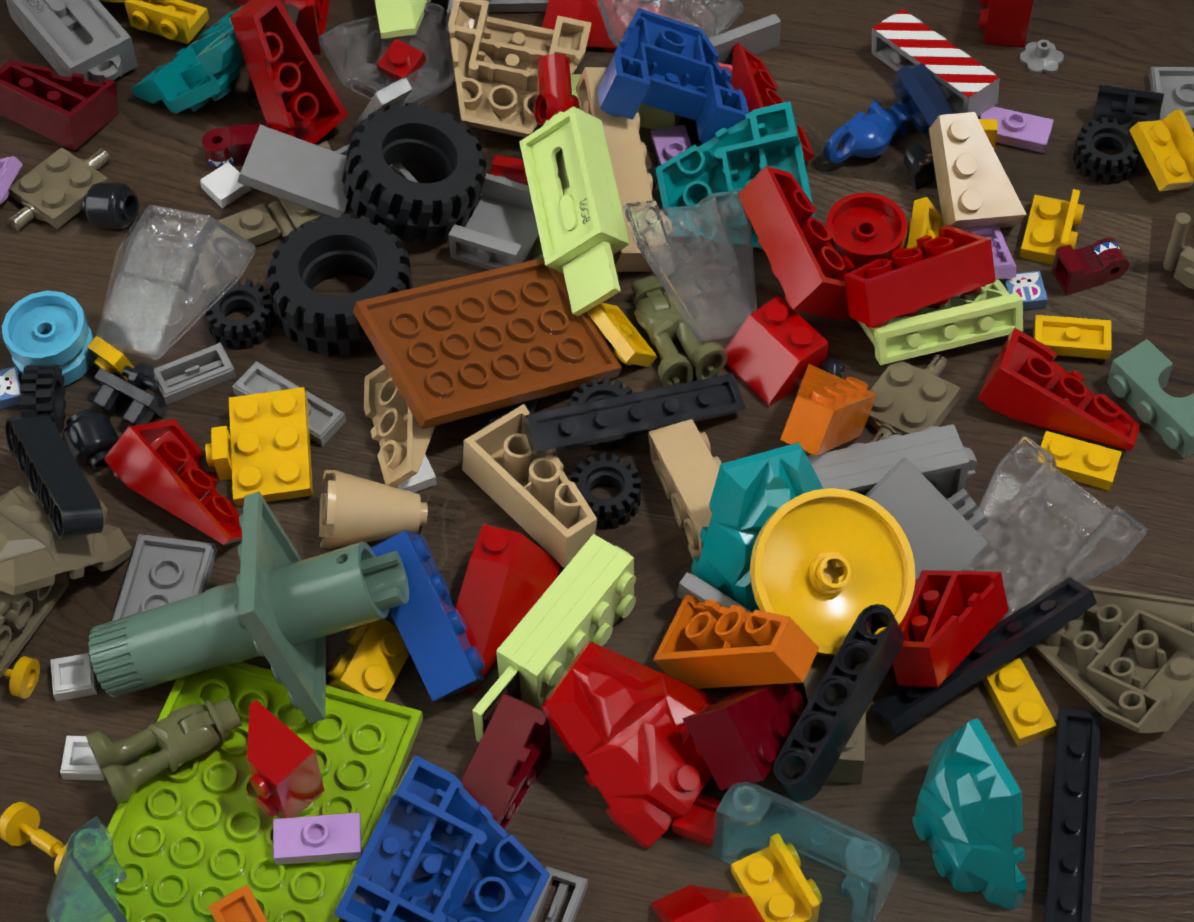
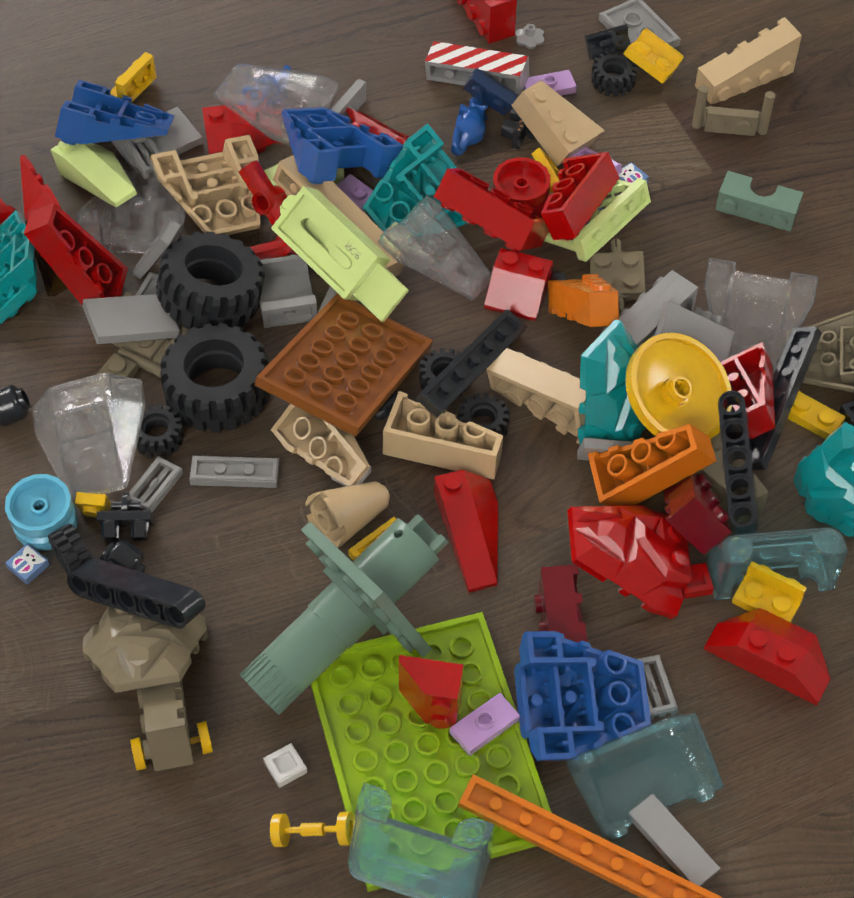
camera: 35 degrees left, 0 degrees up
(73, 677) = (234, 719): white tile -> none
(164, 572) = (244, 626): light grey tile -> none
(166, 469) = (185, 555): red wedge -> none
(180, 736) = (347, 712): olive piece -> none
(219, 452) = (220, 525): yellow plate -> none
(223, 185) = (74, 354): white tile -> none
(232, 146) = (64, 325): dark red leg -> none
(270, 445) = (248, 503): yellow plate -> none
(371, 660) = (426, 601): yellow bracket -> none
(400, 60) = (140, 217): red plate -> none
(431, 623) = (460, 557): blue wedge -> none
(571, 612) = (534, 514): yellowish green piece -> none
(623, 336) = (427, 325): yellow plate -> none
(663, 325) = (436, 298): olive piece -> none
(1040, 392) = (688, 233): red wedge -> none
(1051, 227) = (620, 134): yellow bracket -> none
(1074, 336) = (679, 191): yellow plate -> none
(1083, 460) = (747, 258): yellow plate -> none
(1089, 265) = (657, 143): dark red leg -> none

